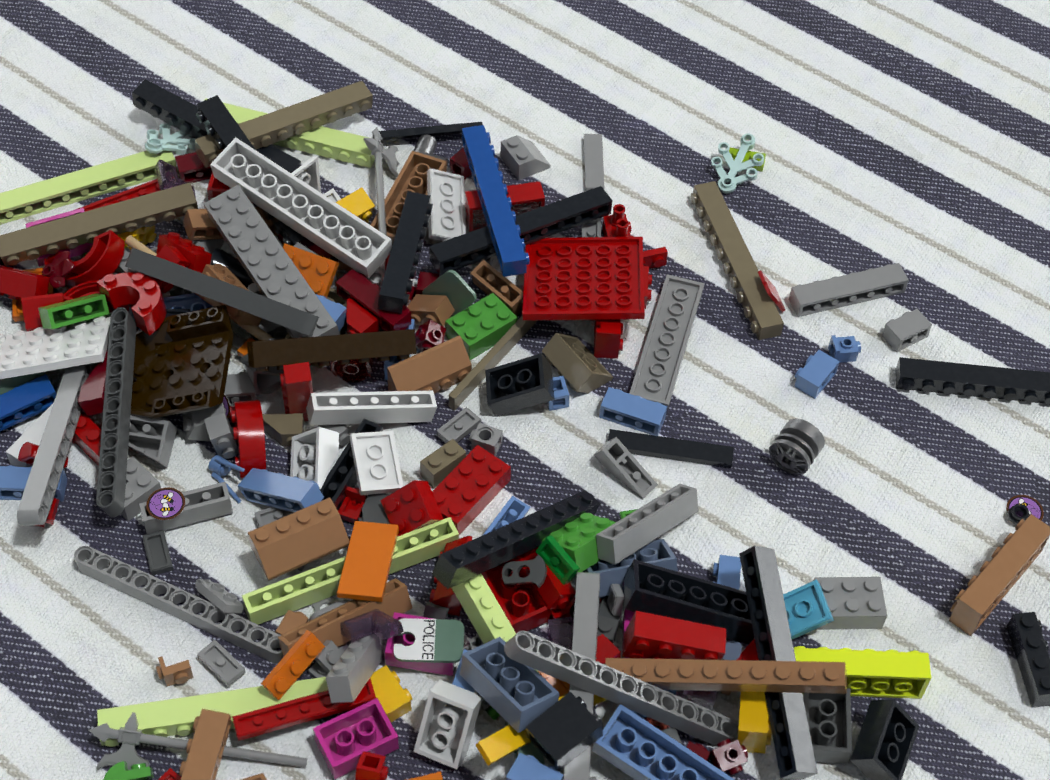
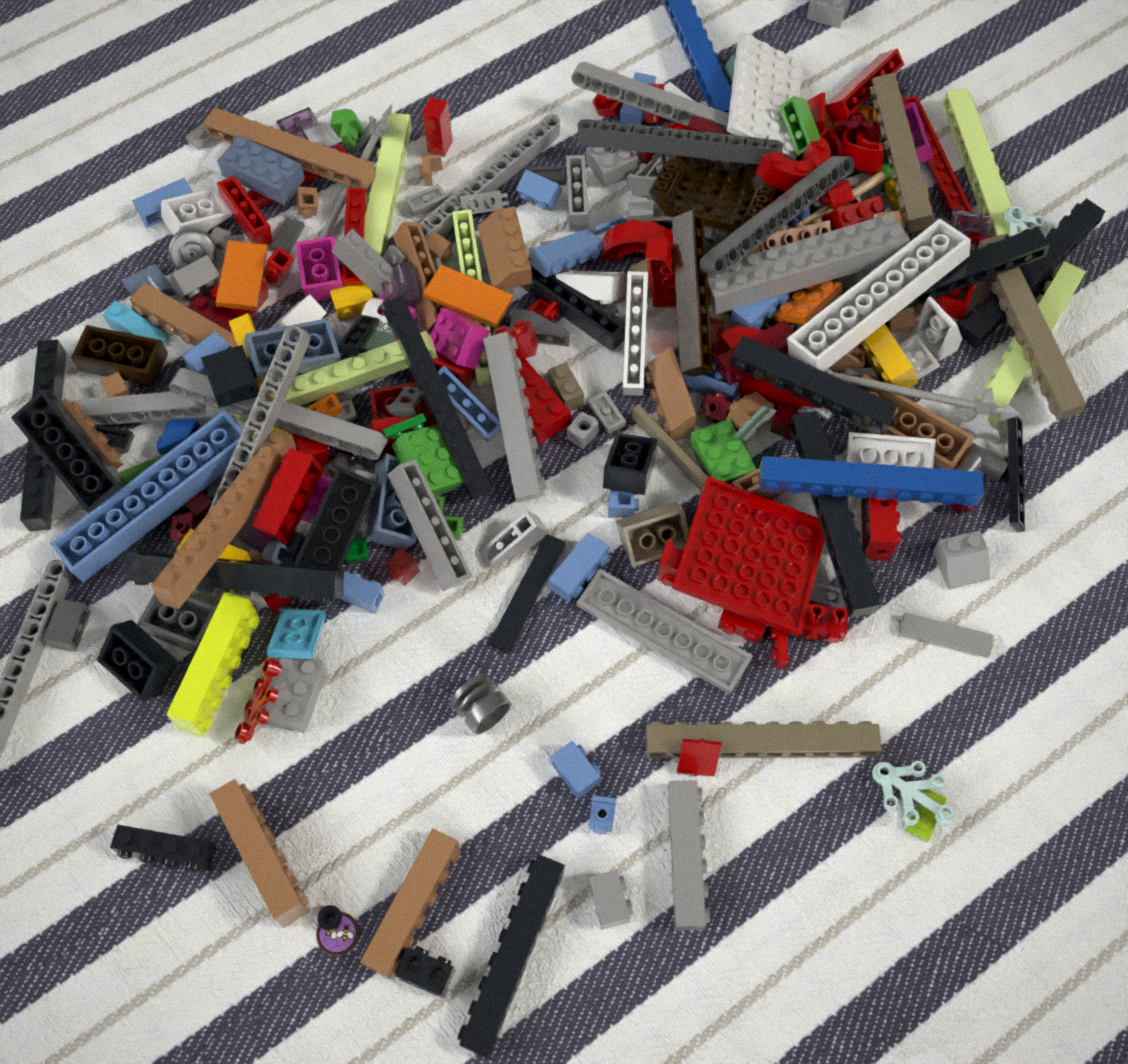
camera: 110 degrees right, 10 degrees up
(123, 662) = (437, 126): none -> red brick
(165, 503) = (578, 171): sticker -> none
(188, 547) = (539, 190): none -> medium blue brick
(292, 665) = (389, 227): orange plate -> none
(376, 462) = (570, 322): white plate -> none
(419, 554) = (459, 338): none -> dark pink brick
(457, 639) = (358, 335): none -> black tile
(501, 483) = (514, 417): none -> light grey brick
(689, 549) = (402, 567): none -> clear red brick
(879, 617) = (245, 730): none -> red plant
(978, 459) = (410, 904): none -> medium nougat brick
(1023, 434) = (423, 978): none -> black brick

